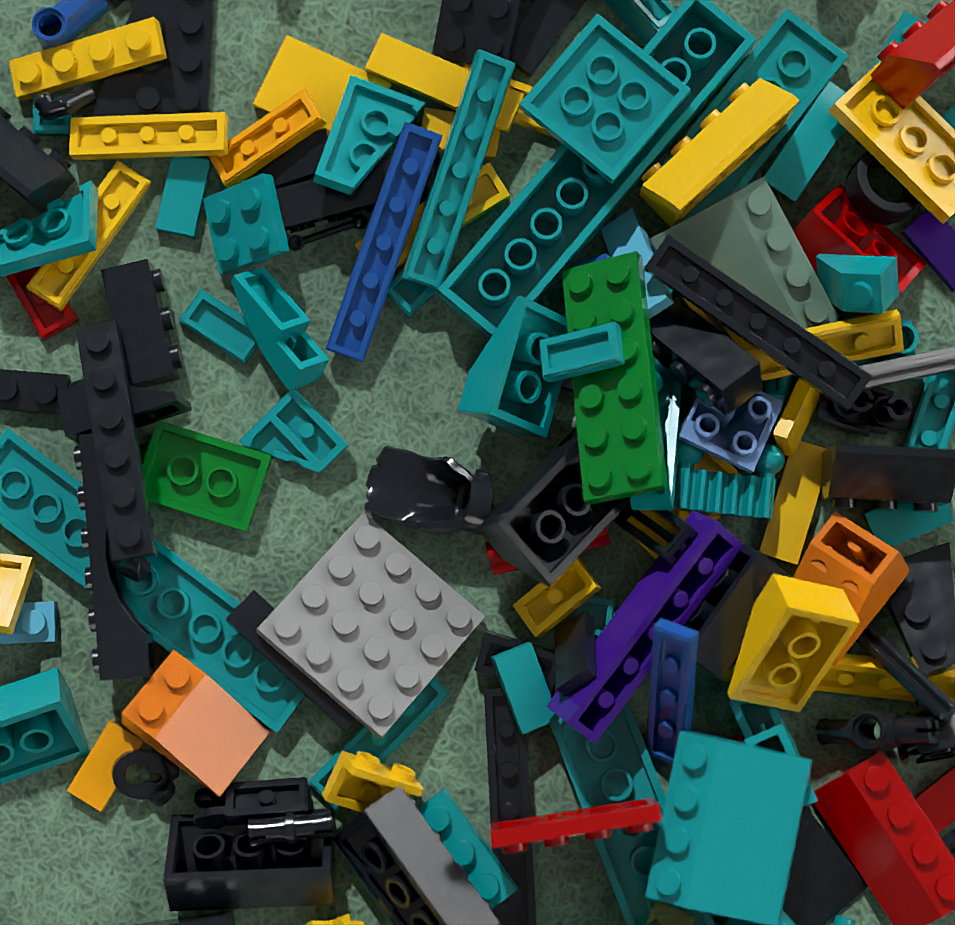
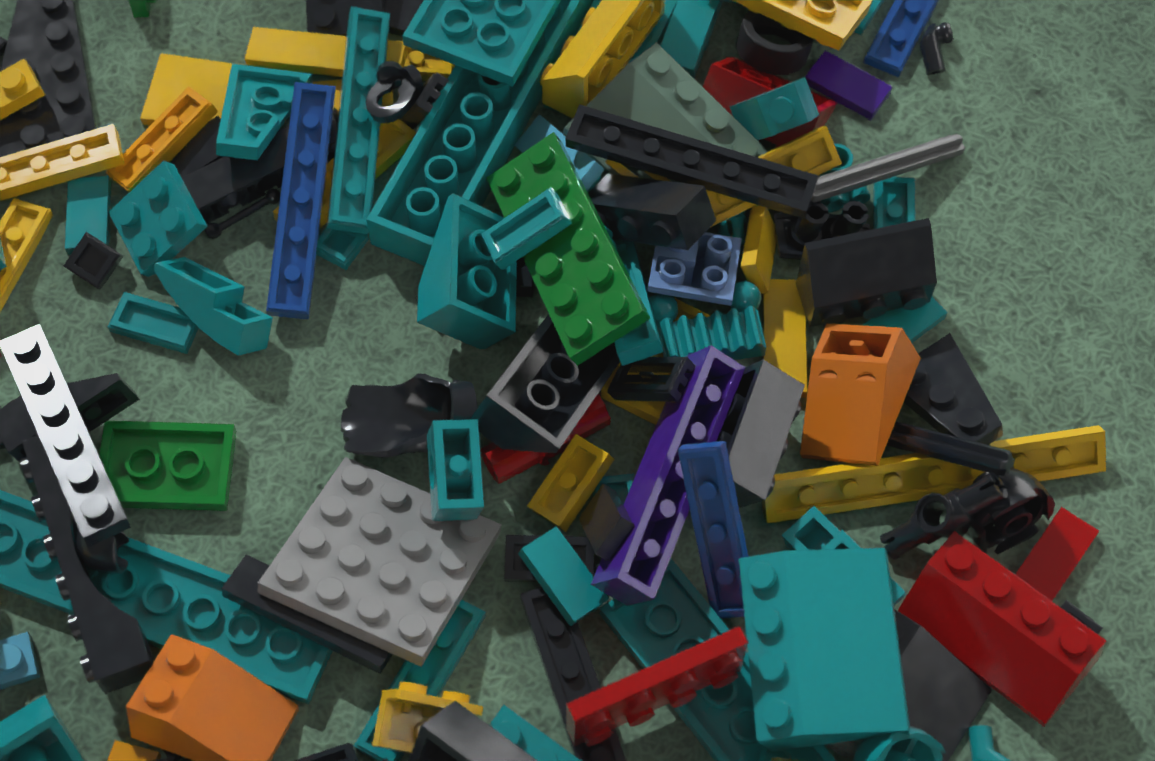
camera: 20 degrees left, 20 degrees down
(143, 323) = (67, 328): black brick -> none
(178, 249) = (93, 260): none -> black tile
(297, 434) = (257, 400): teal wing -> none
(454, 572) = (455, 470): none -> teal brick
(496, 139) = (390, 76): none -> black piece
(524, 173) = (425, 100): none -> black tile
(791, 642) = (824, 446): yellow slope -> none

